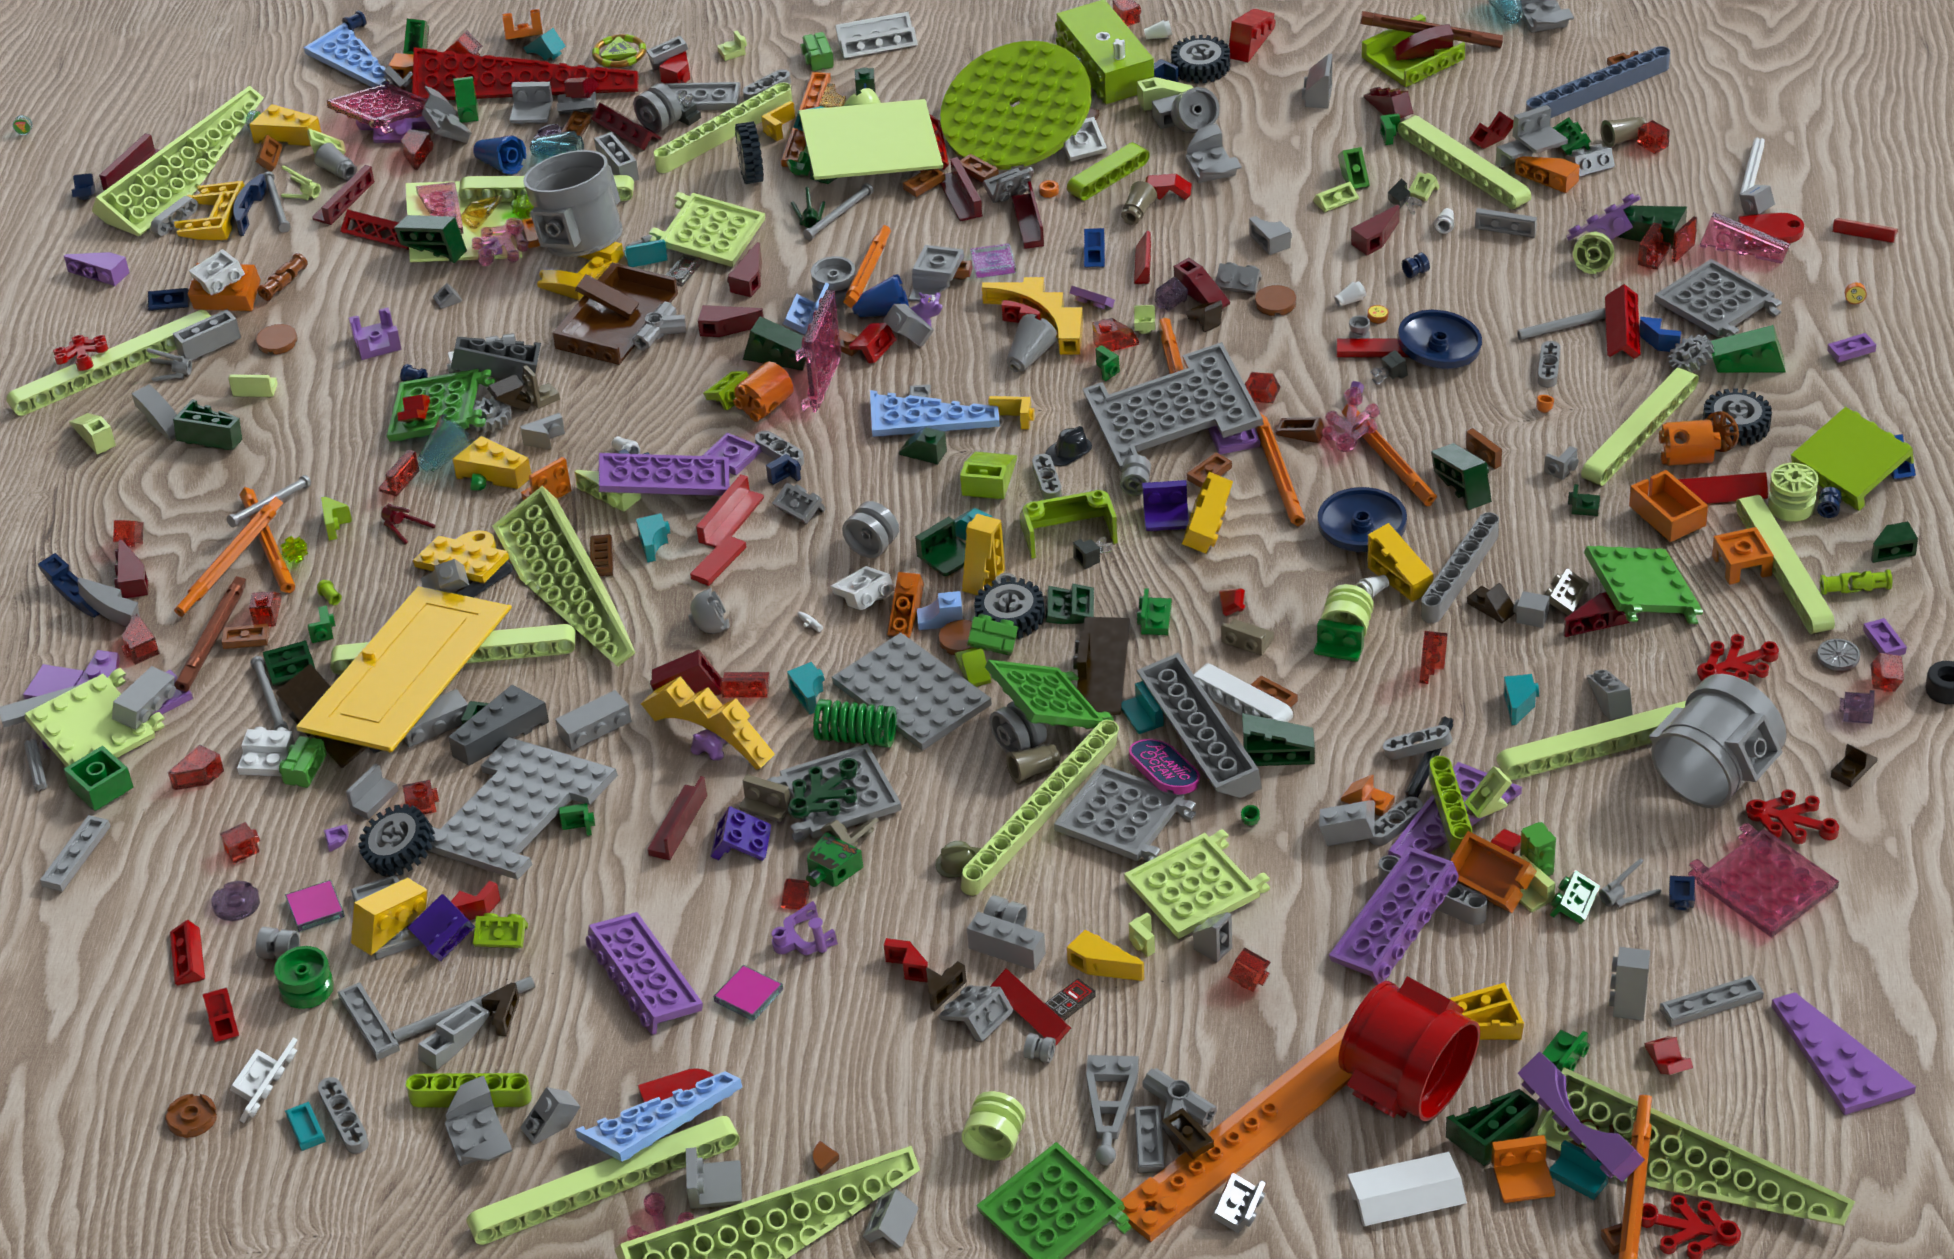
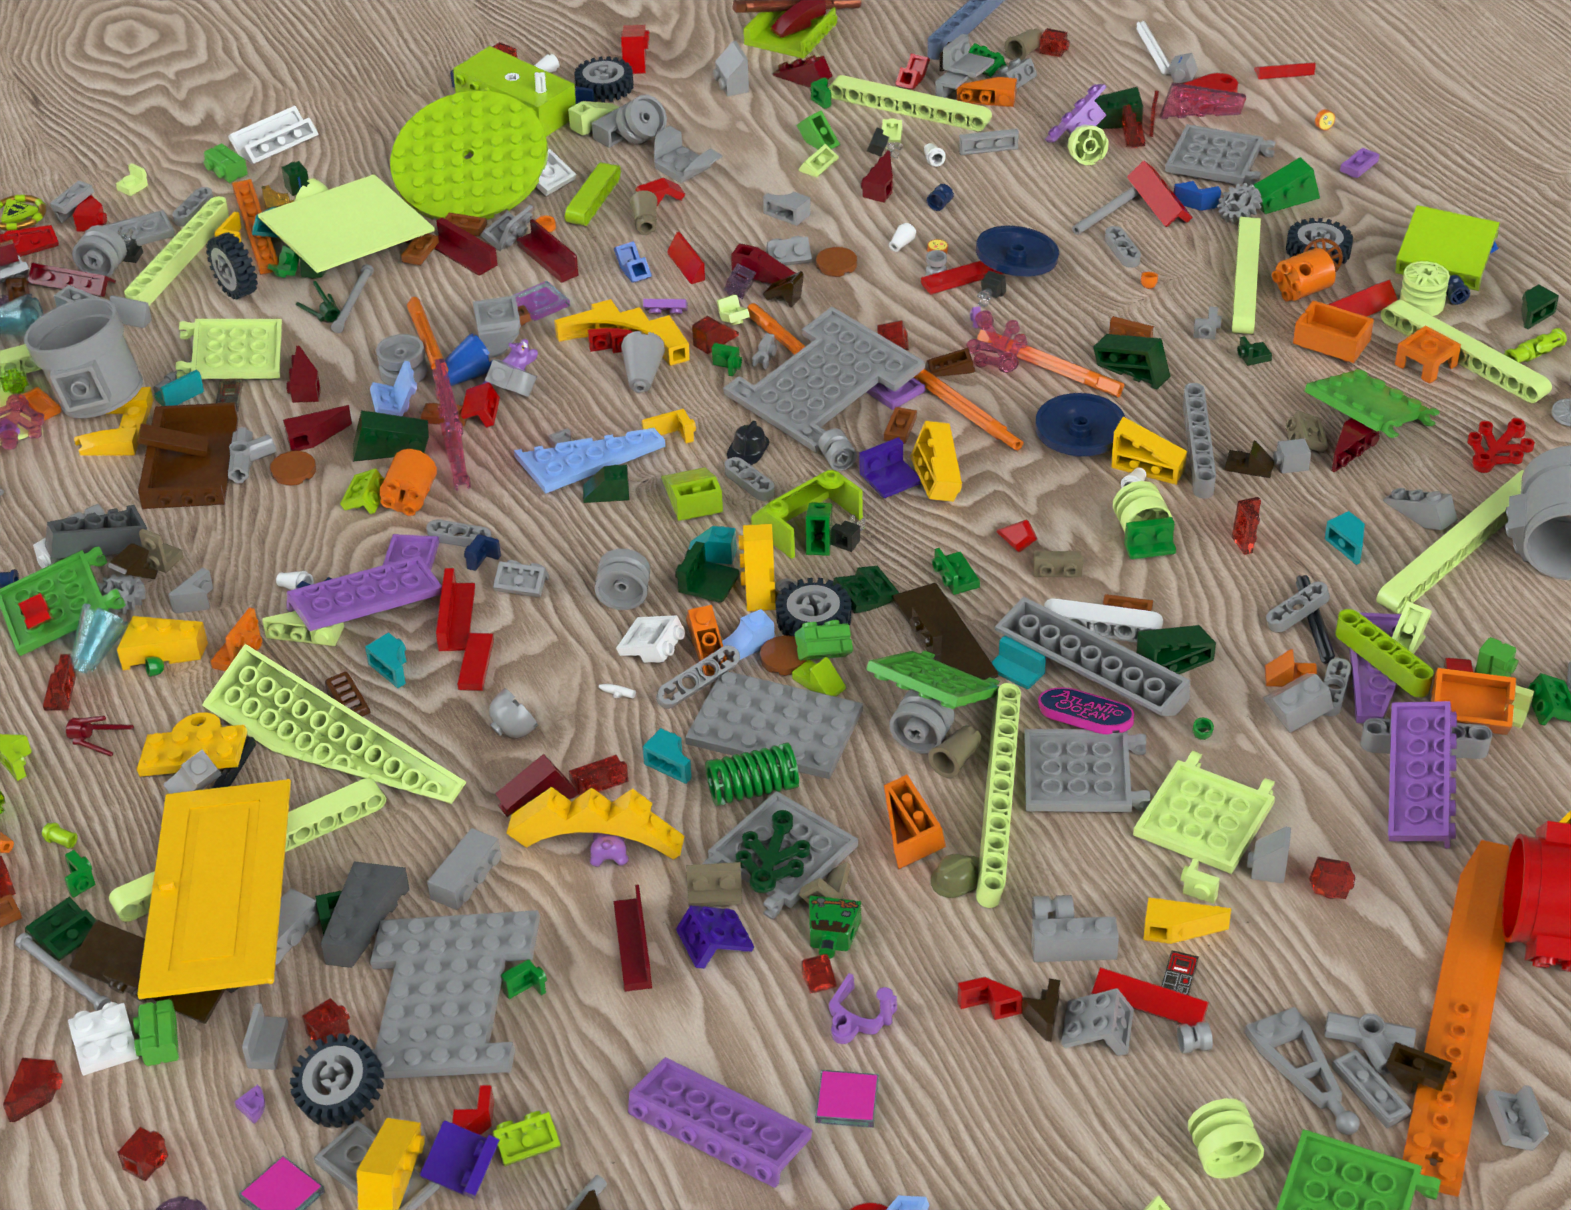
camera: 30 degrees left, 0 degrees up
(652, 170) = (132, 311): none -> light grey slope
(690, 349) = (293, 467): none -> dark orange tile
(875, 628) = (696, 674): none -> light grey beam
(949, 806) = (912, 823): none -> orange wedge
(1061, 535) = (818, 522): none -> green torso
(1145, 366) = (767, 350): none -> light grey plate

